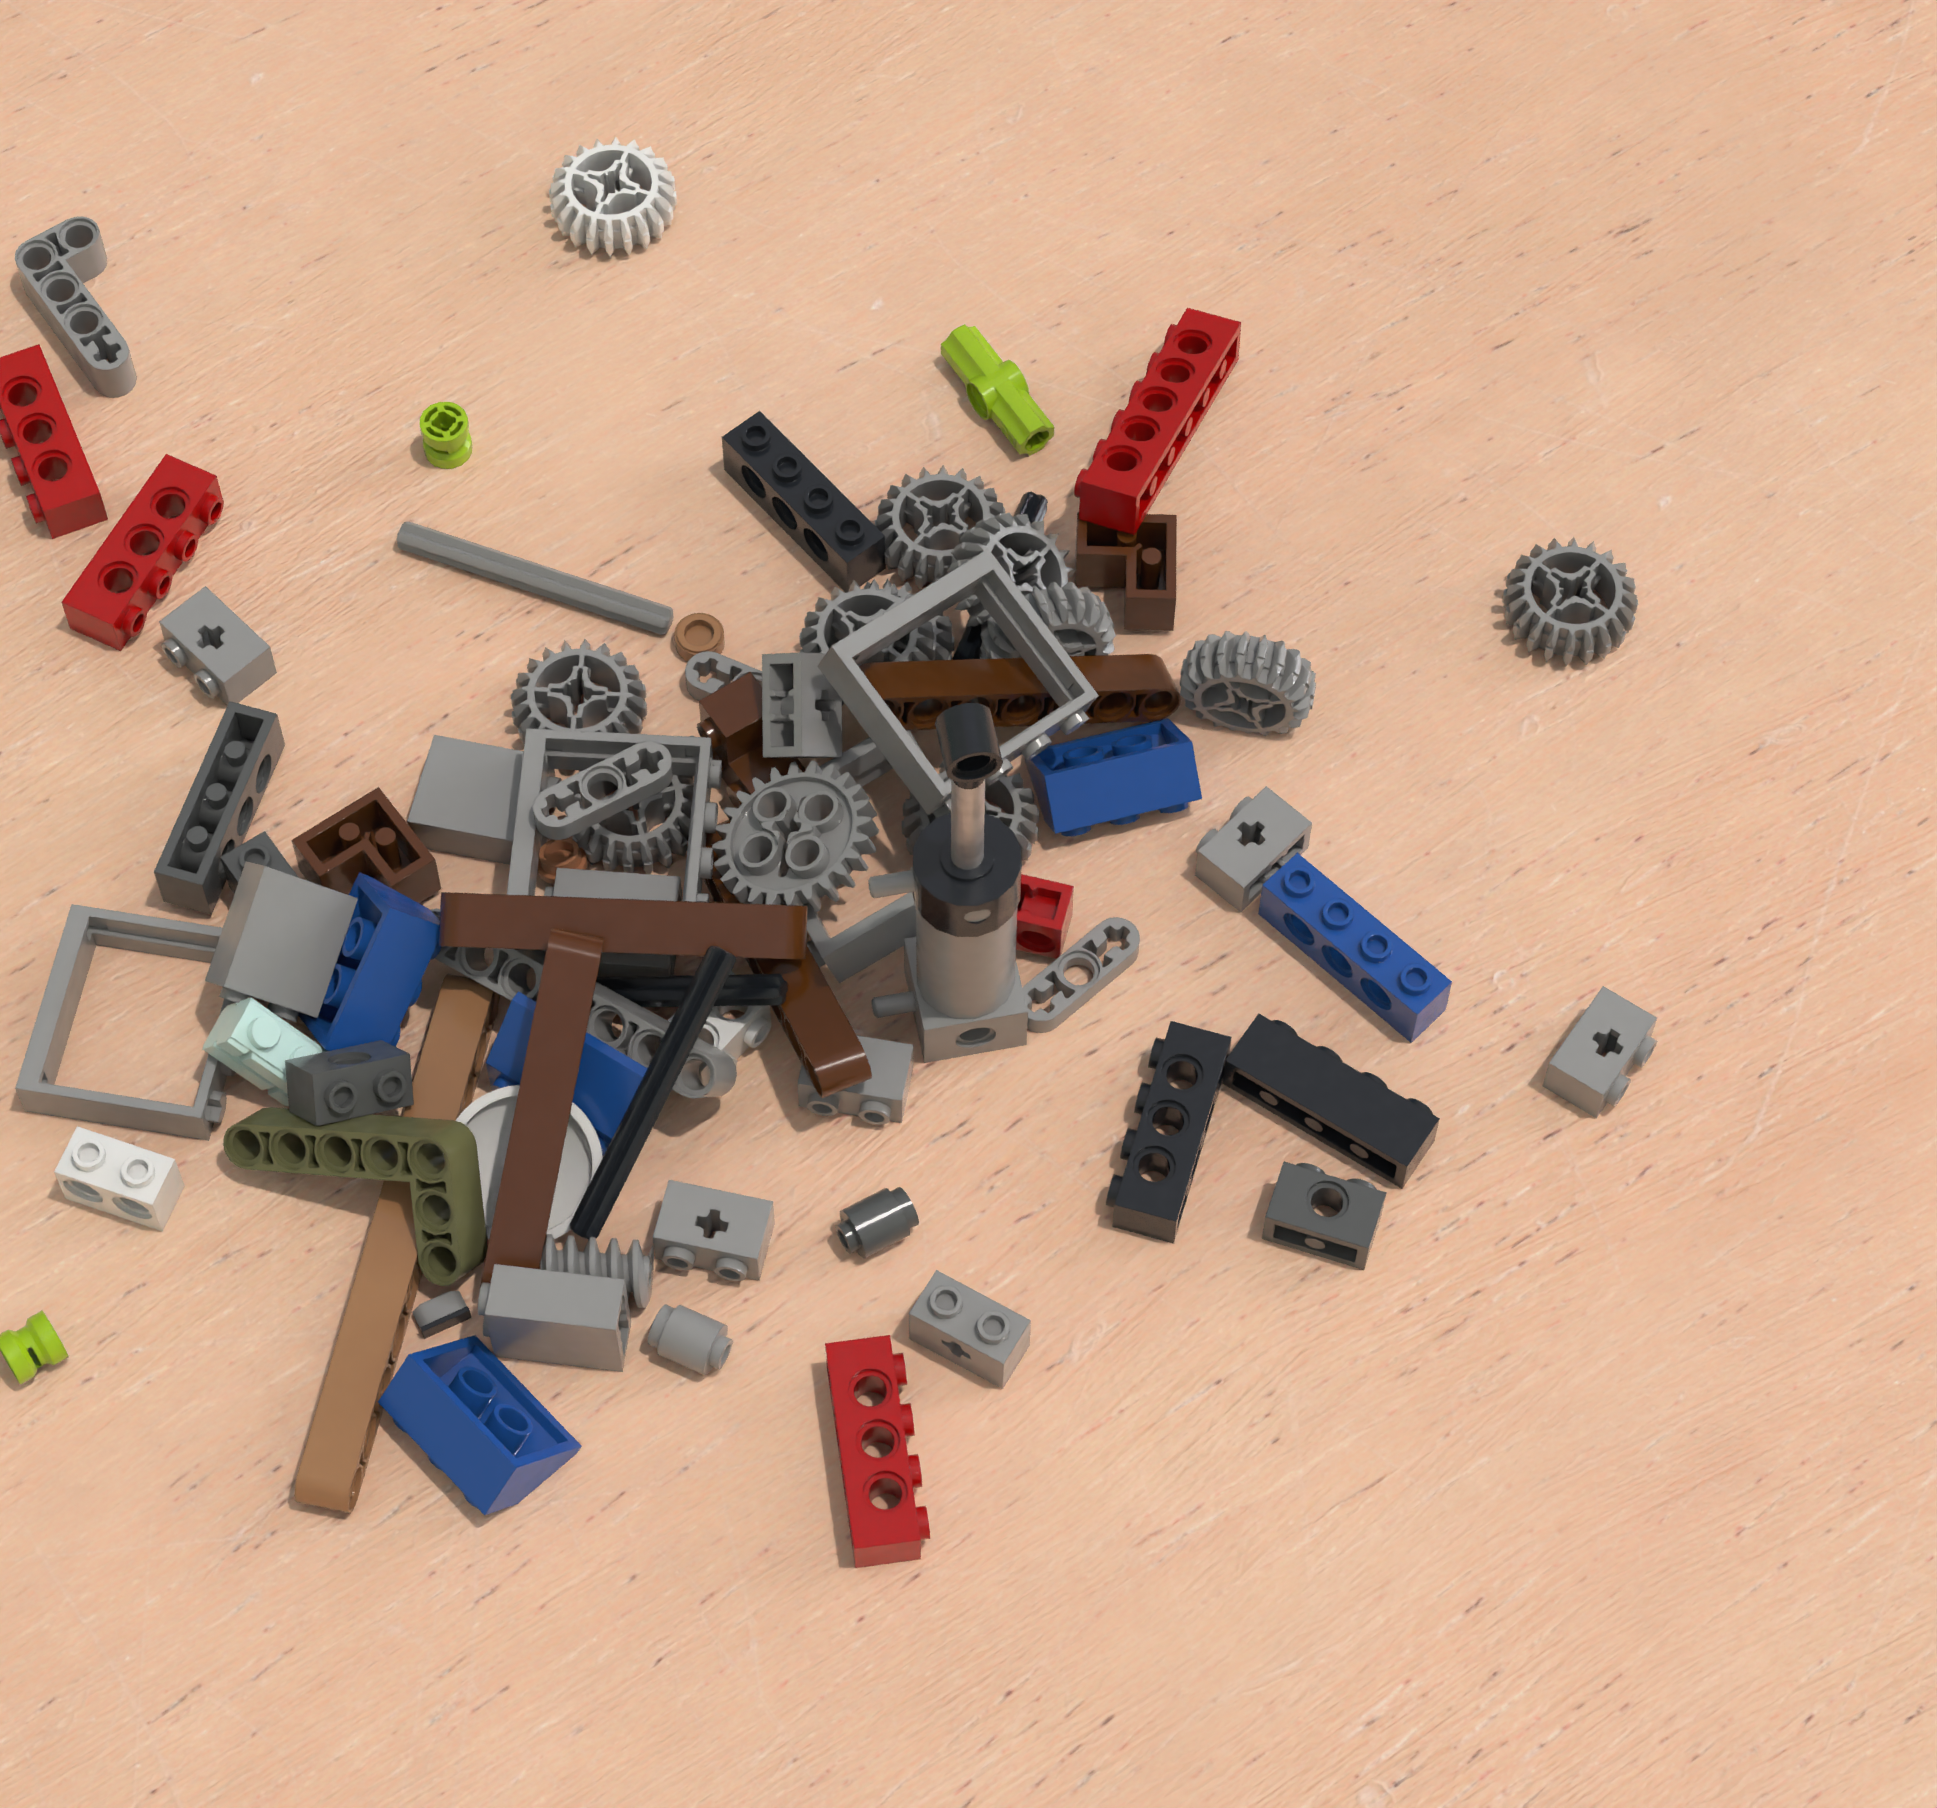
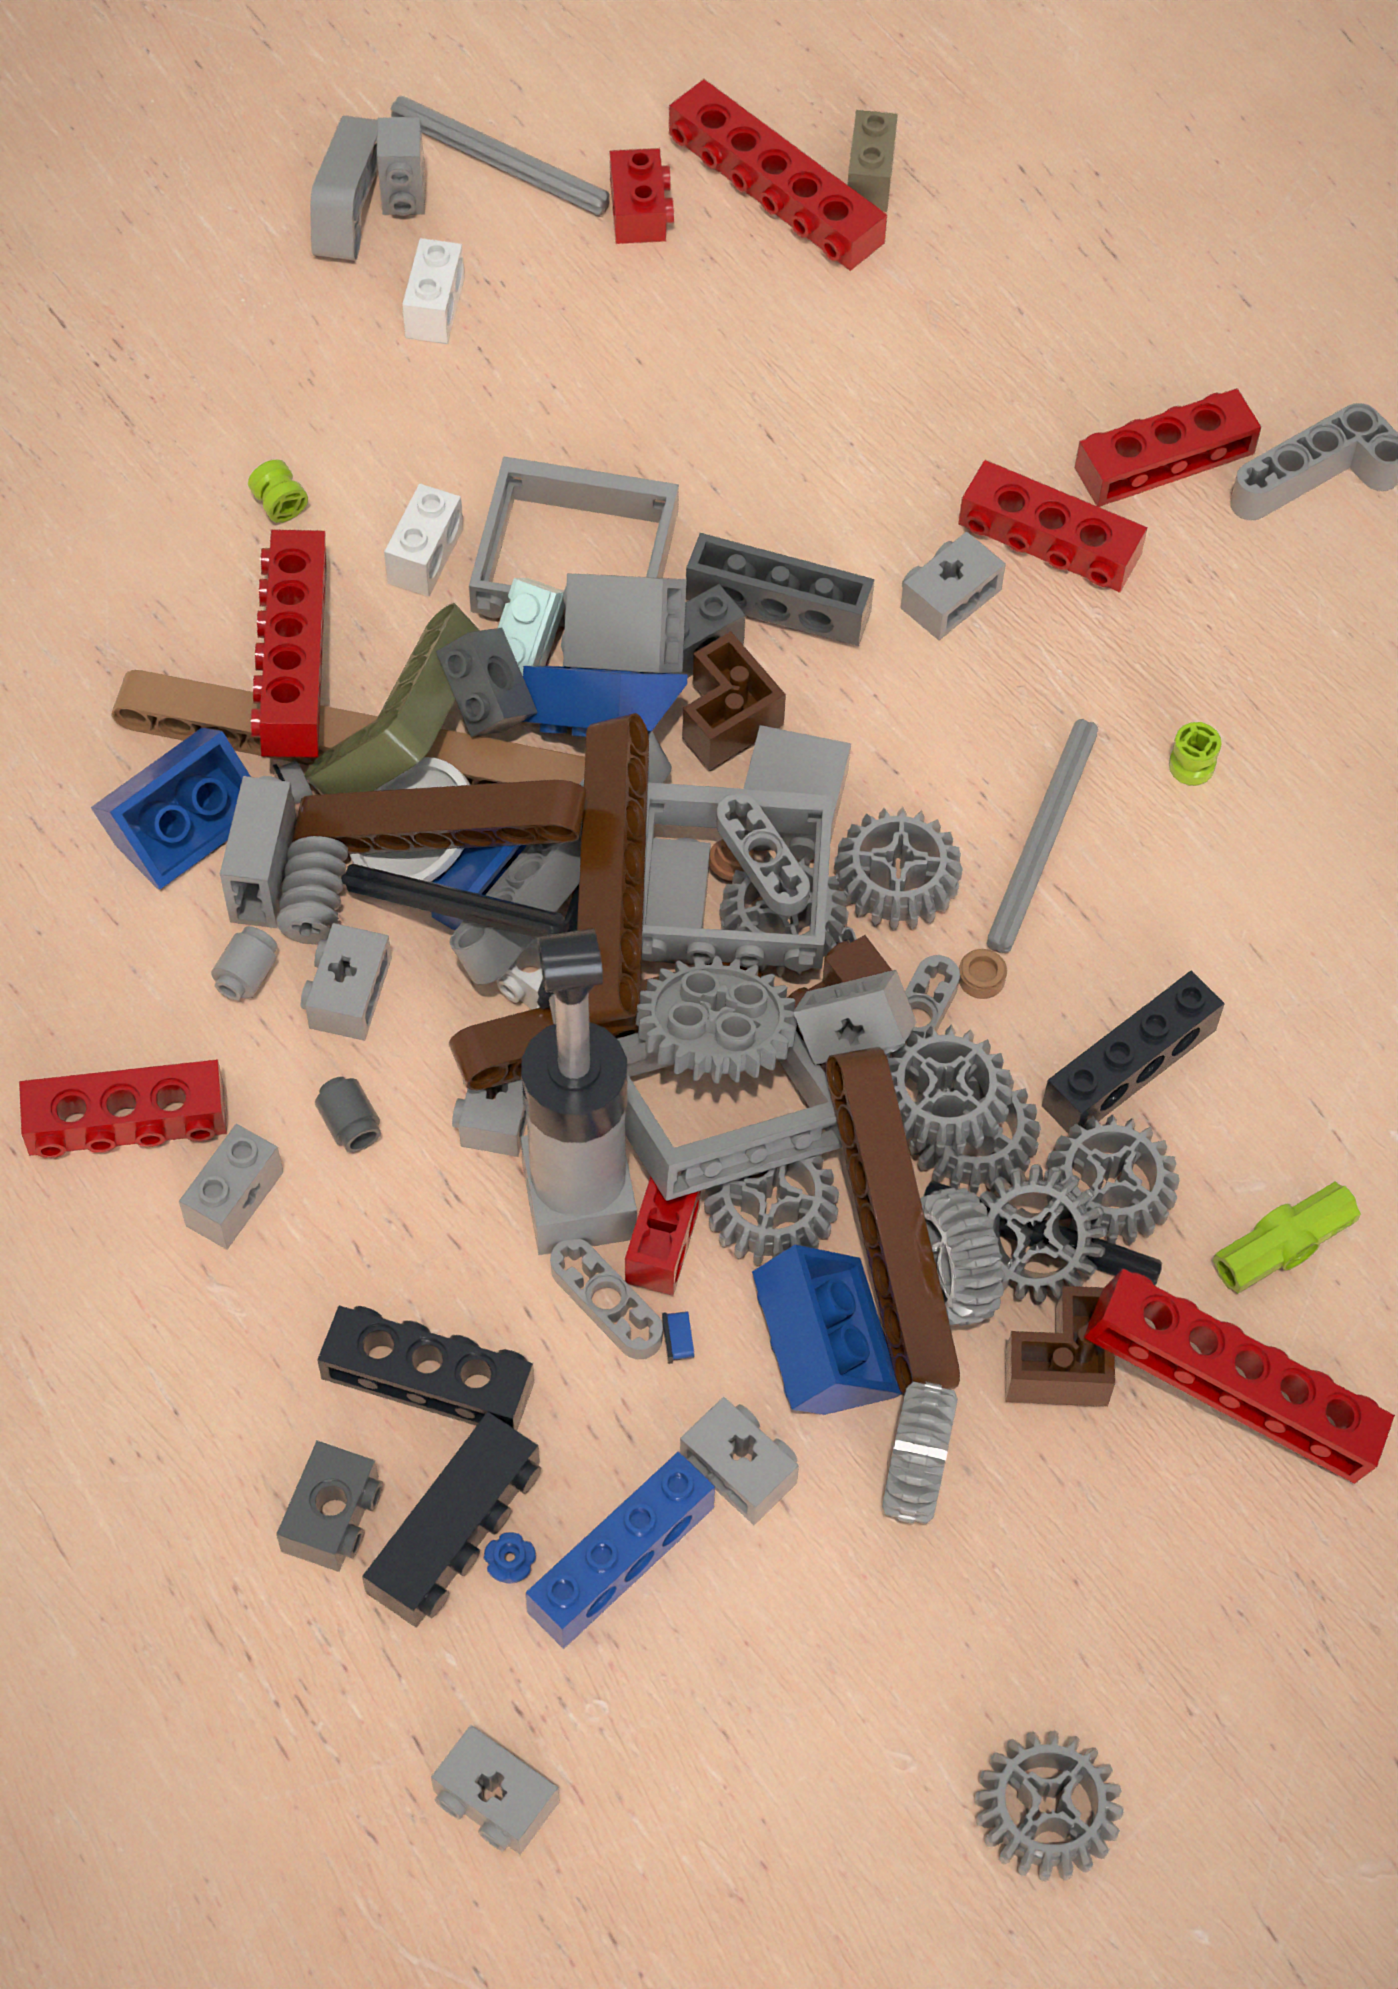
camera: 90 degrees right, 0 degrees up
(247, 1285) = (291, 645): none -> red brick
(1022, 627) = (777, 1175): light grey window -> none
(1121, 906) = (677, 1336): none -> blue piece
(1372, 1042) = (513, 1570): none -> blue plate

